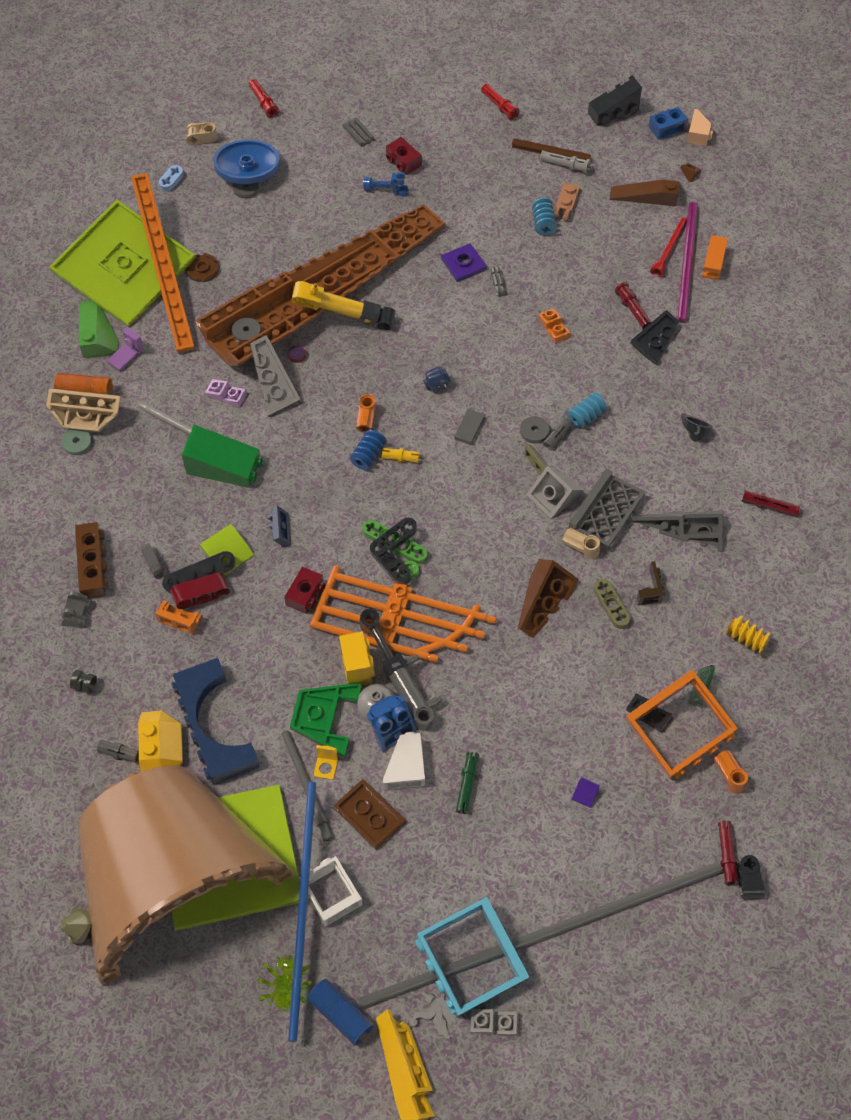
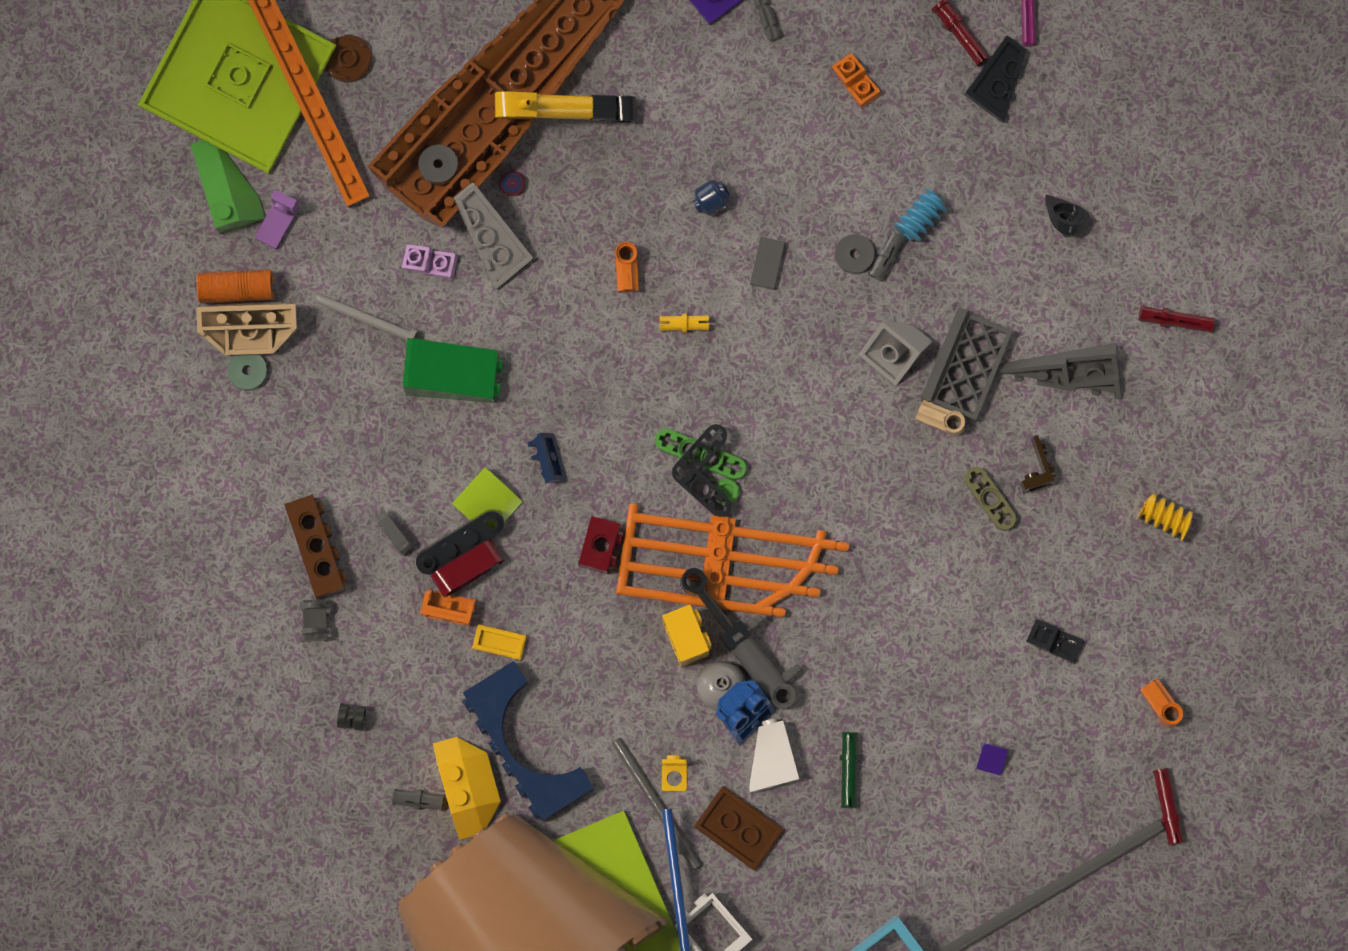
camera: 10 degrees left, 20 degrees up
(211, 647) = (499, 642): none -> yellow tile
(316, 712) = (648, 710): green wing -> none
(367, 449) = (639, 324): blue piece -> none
(535, 458) = (867, 303): olive slope -> none
(546, 588) = (903, 496): reddish brown wedge -> none
(689, 678) = (1117, 695): orange window -> none
(705, 675) = (1115, 595): clear green slope -> none
(750, 880) = (1199, 839): black piece -> none

